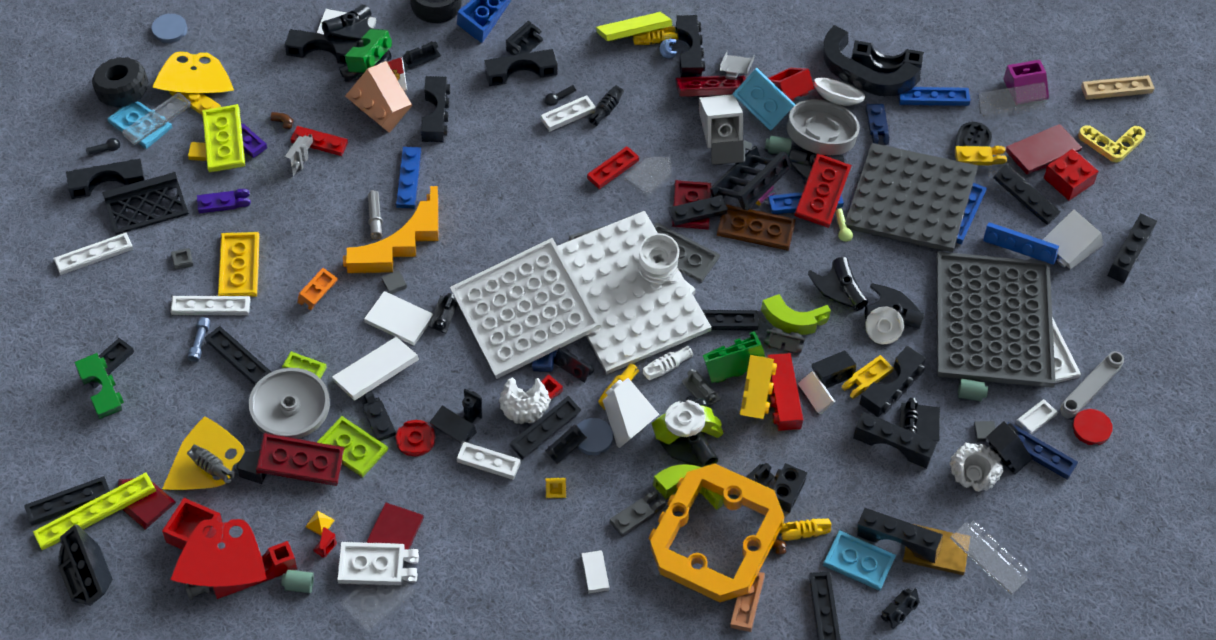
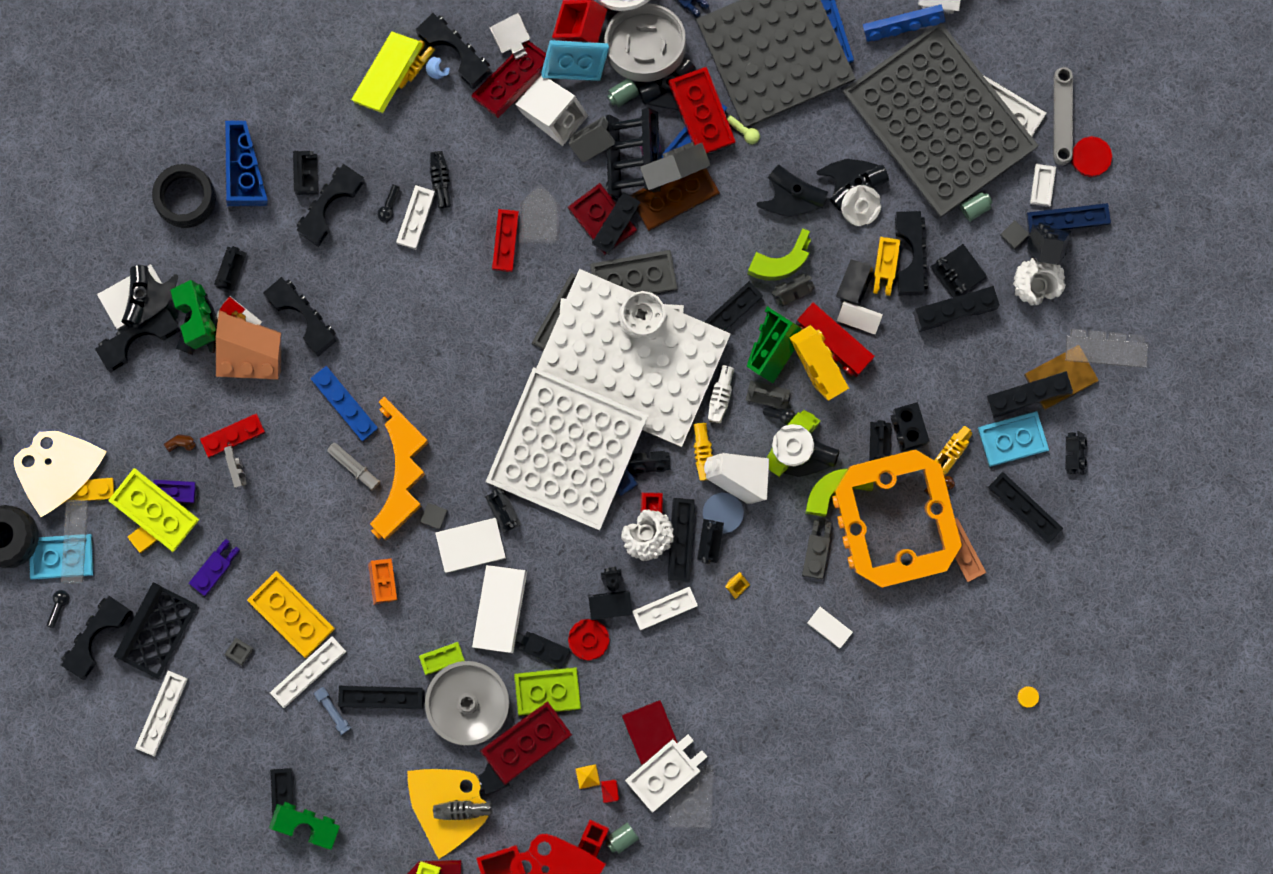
camera: 40 degrees left, 25 degrees up
(774, 196) = (675, 165): none -> dark grey wedge

